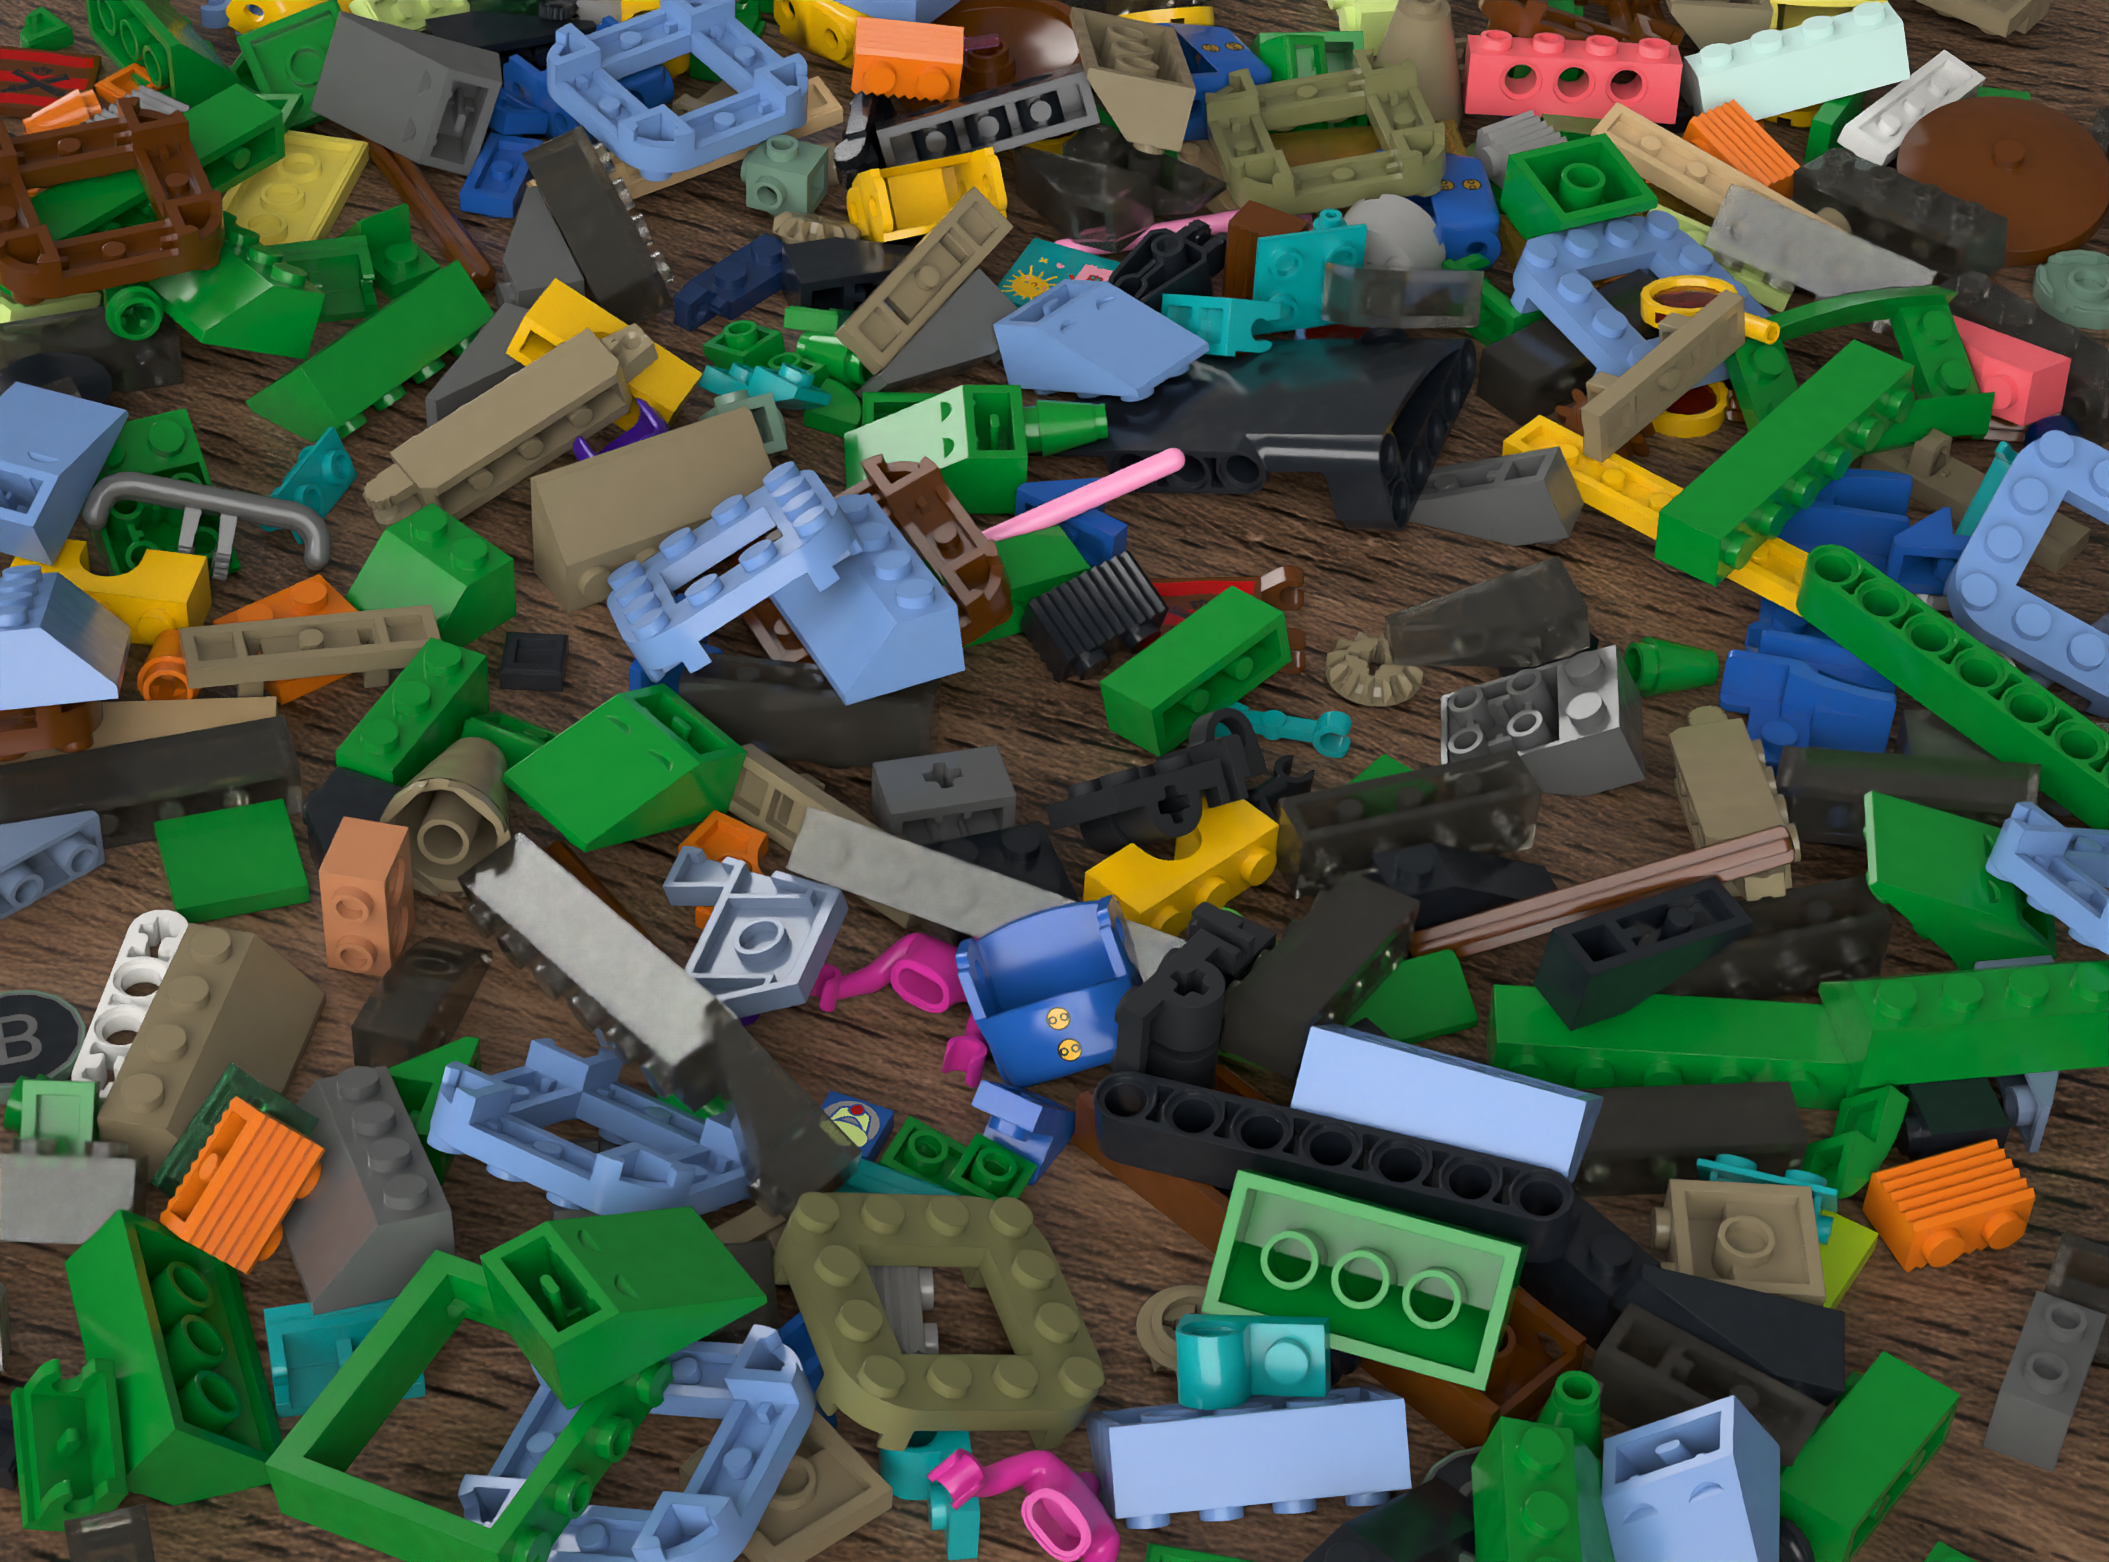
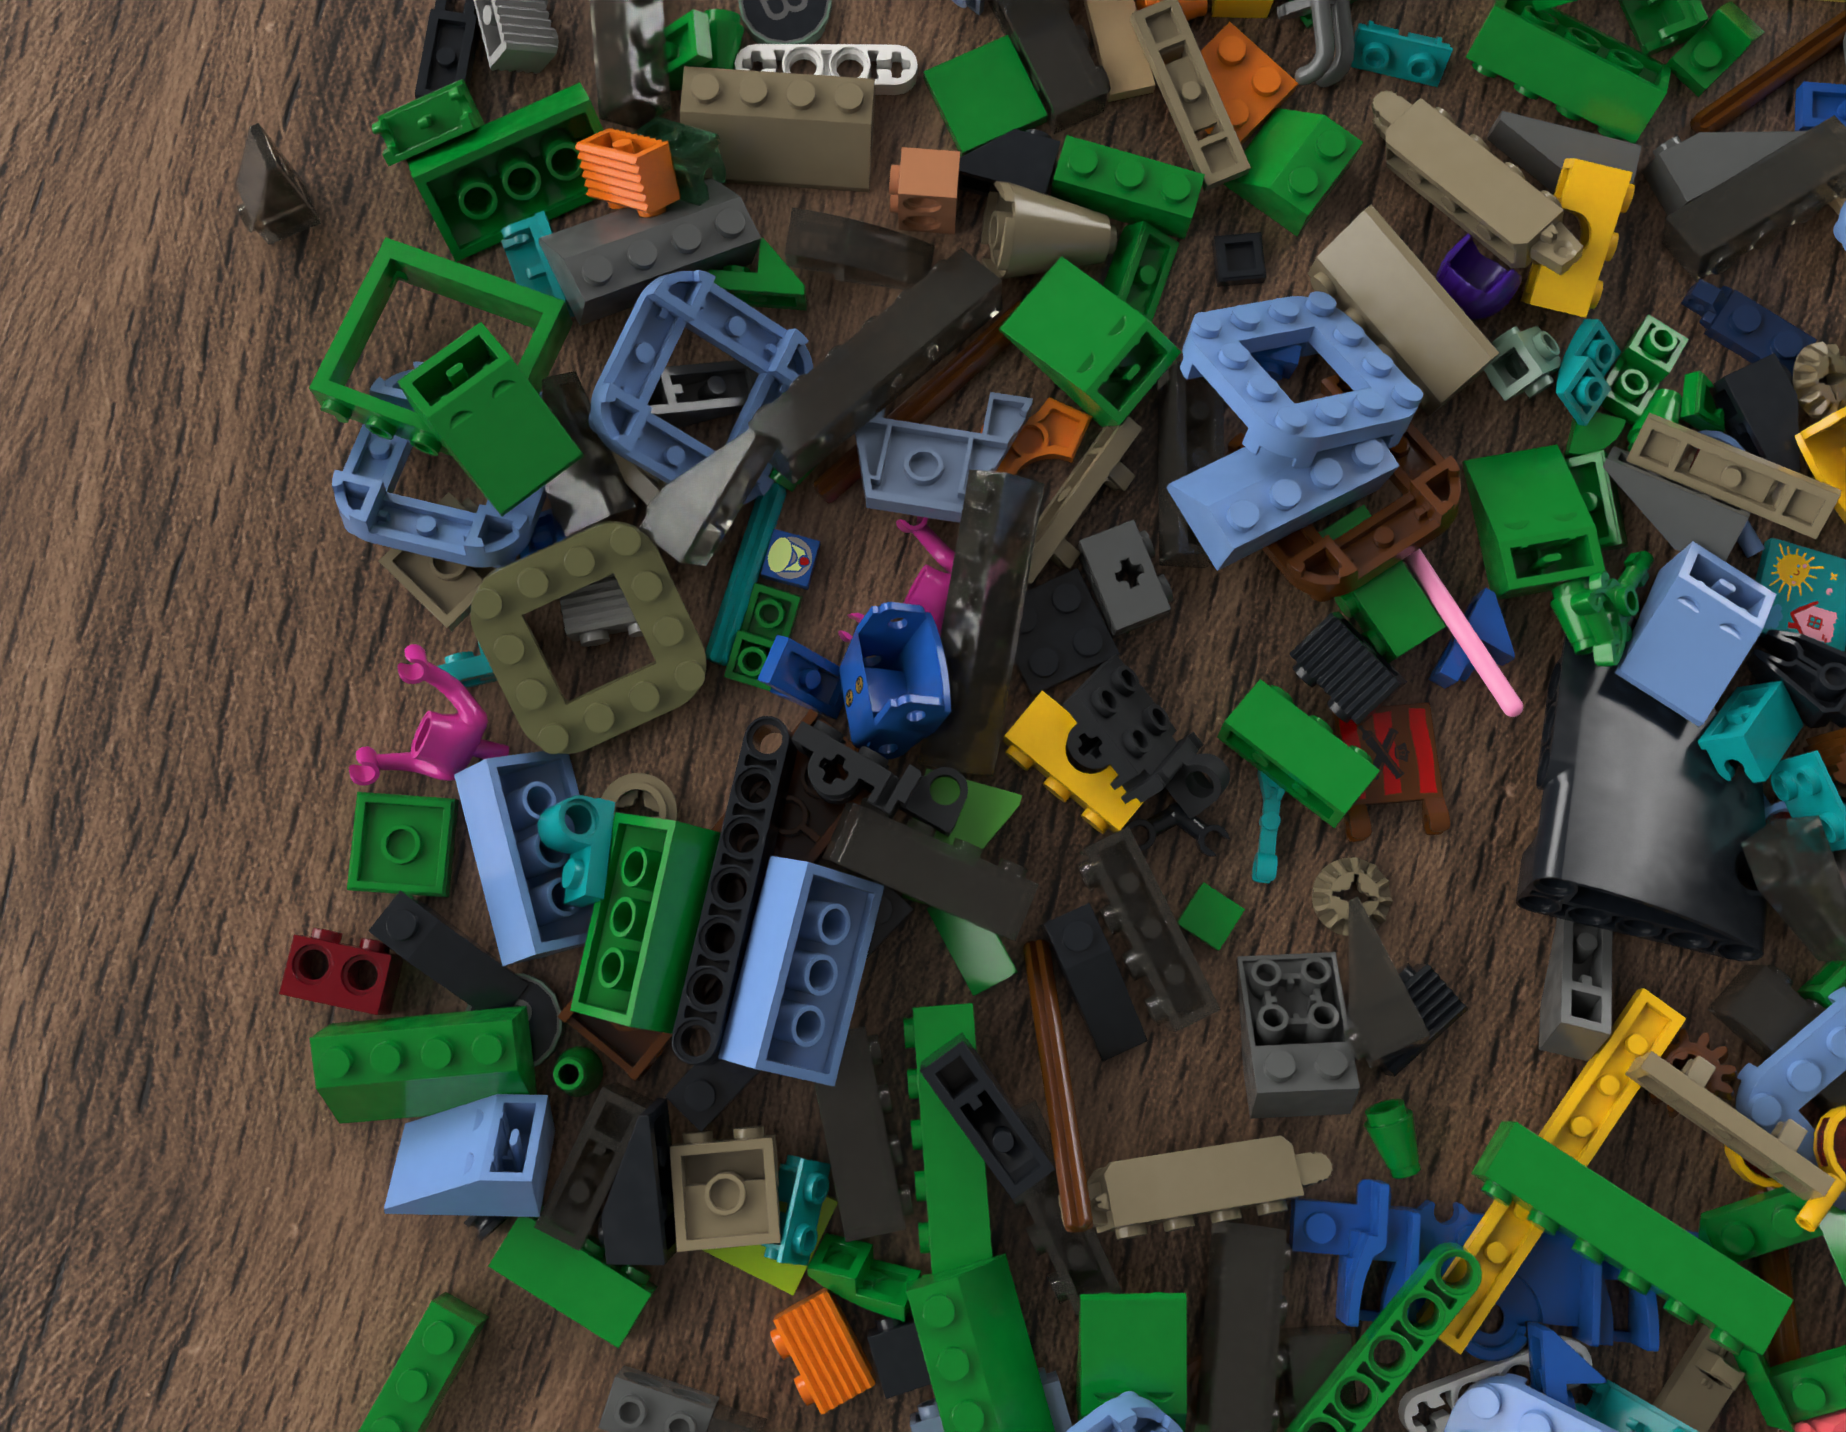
camera: 85 degrees right, 40 degrees up
(1063, 384) = (1610, 607): none -> green piece

